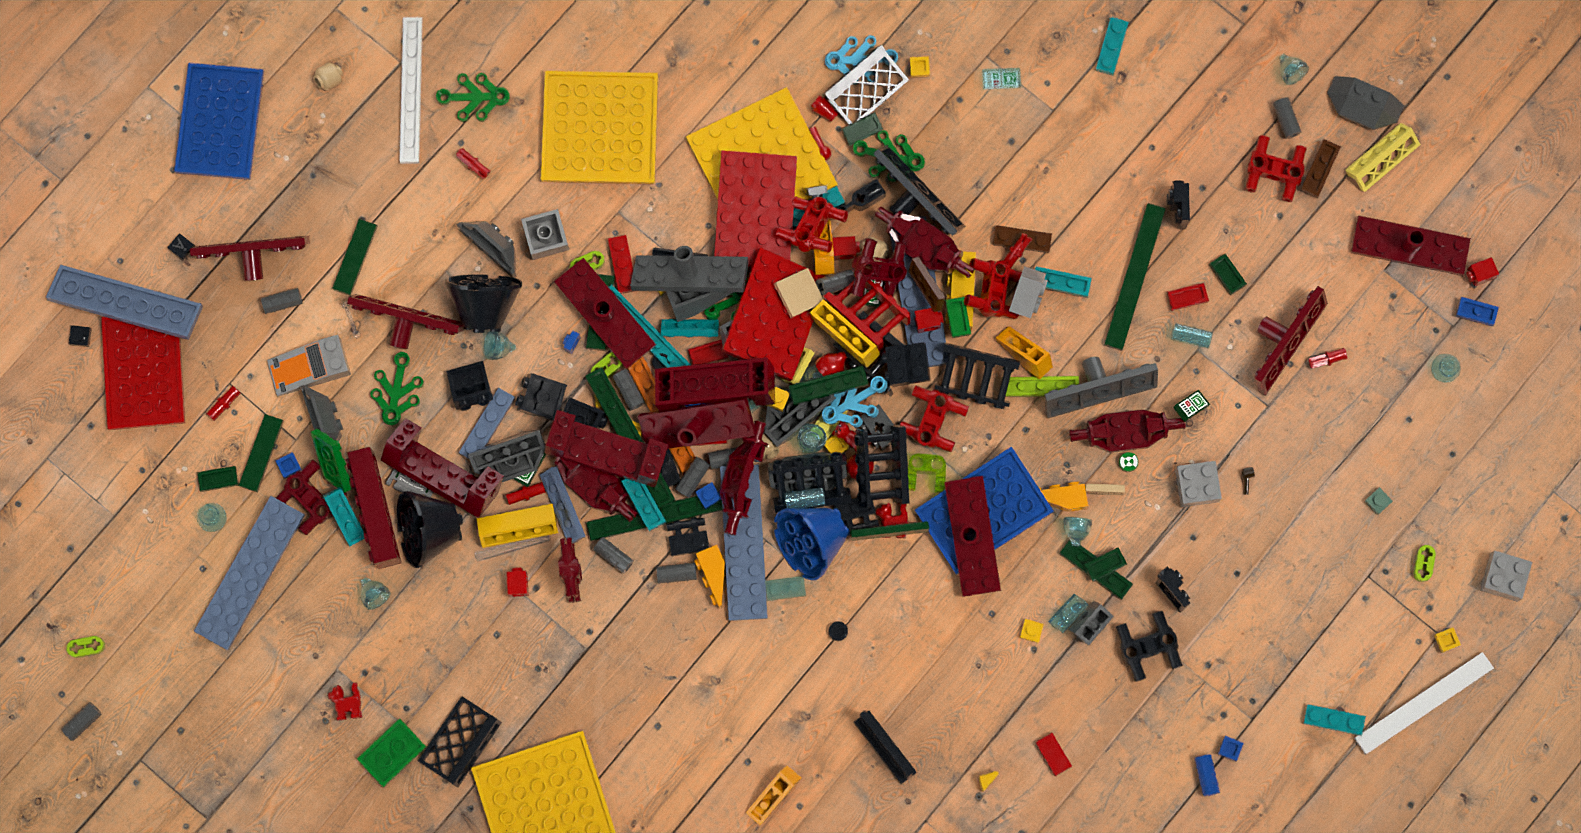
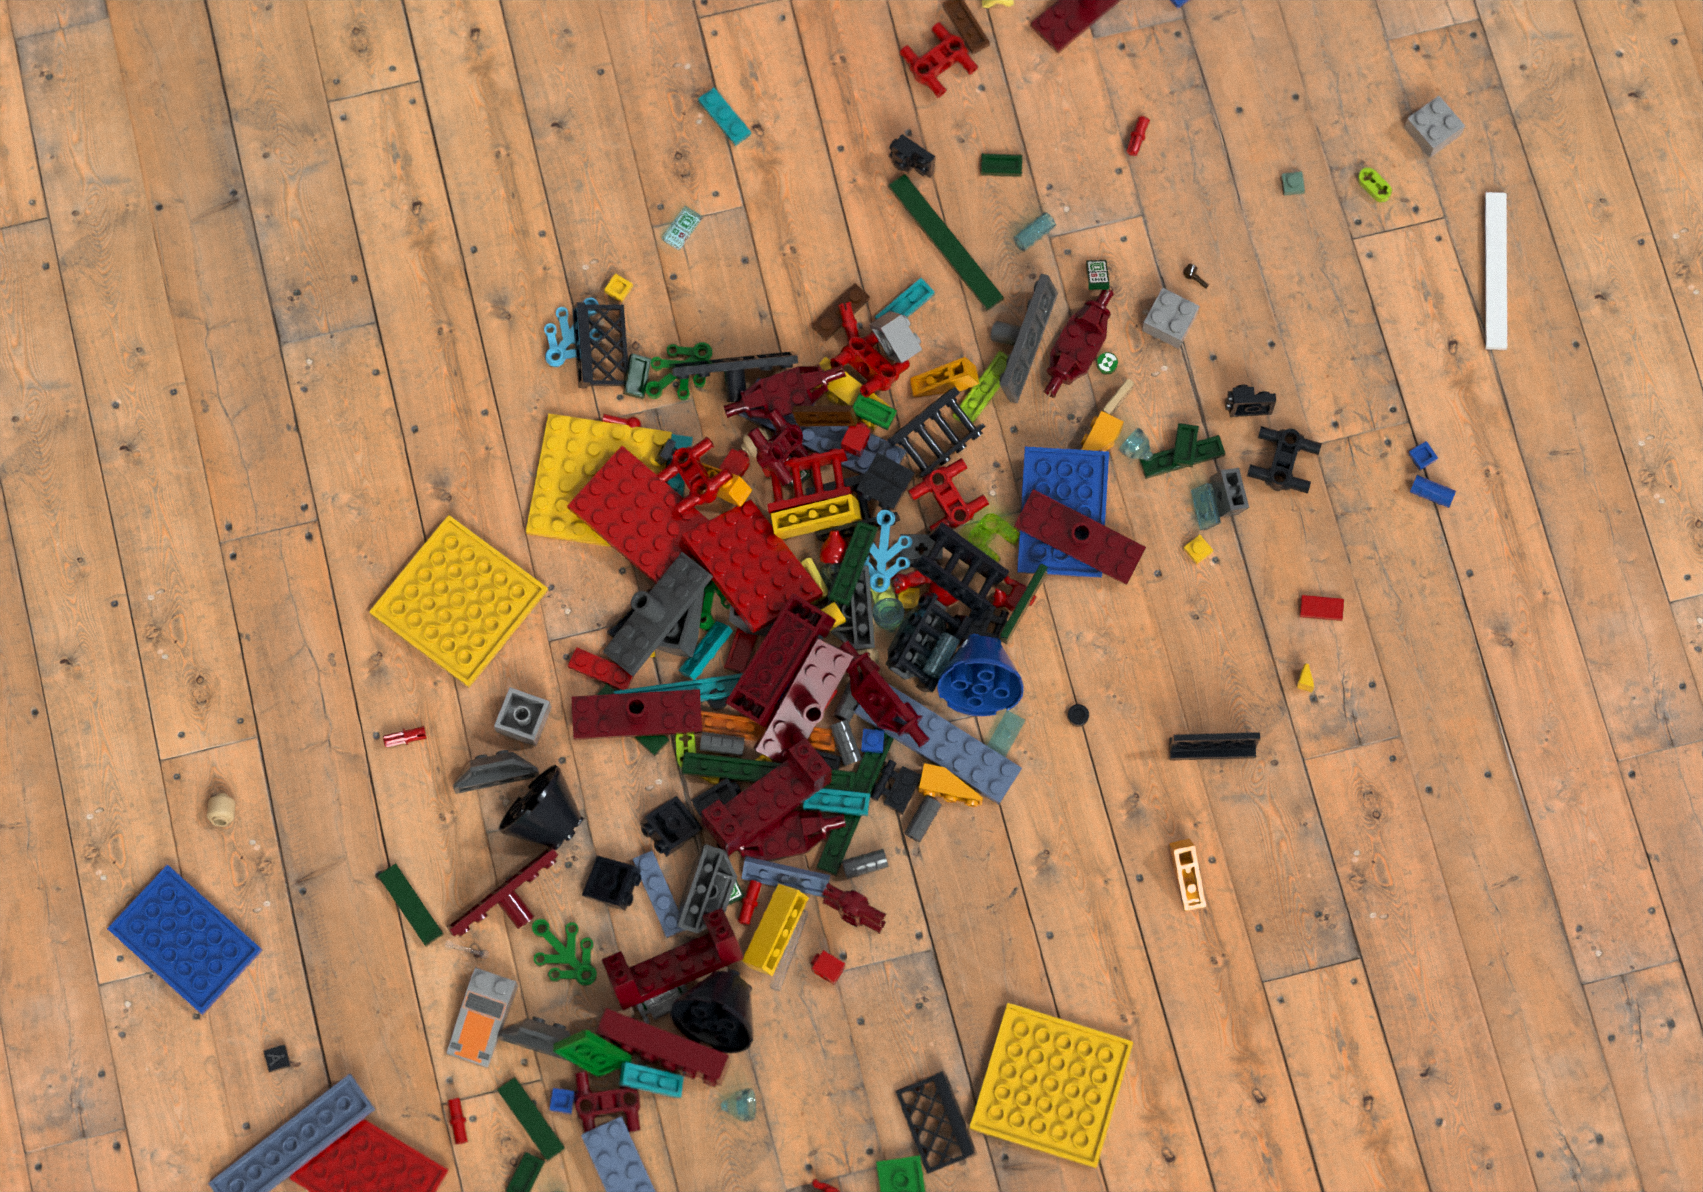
camera: 55 degrees left, 5 degrees down
(250, 252) = (334, 994): dark red plate -> none
(281, 300) = (401, 999): dark grey axle -> none
(411, 90) = (292, 745): white tile -> none
(475, 97) = (343, 690): green plant -> none
(497, 345) = (593, 832): clear light blue helmet -> none
(571, 341) = (639, 764): blue plate -> none
(589, 257) = (572, 692): lime beam -> none
(799, 292) = (748, 530): tan tile -> none
(823, 108) = (593, 395): red cone -> none
(835, 282) = (760, 495): dark grey axle -> none
(871, 193) = (698, 414): black piece -> none
(1187, 297) = (996, 211): red tile -> none
(1287, 117) = (900, 19): dark grey axle -> none
(1287, 338) = (1096, 155): dark red plate -> none
(1334, 720) = (1459, 352): teal plate -> none
(1445, 368) = (1217, 48): clear light blue helmet -> none
(1447, 640) = (1455, 212): yellow plate -> none

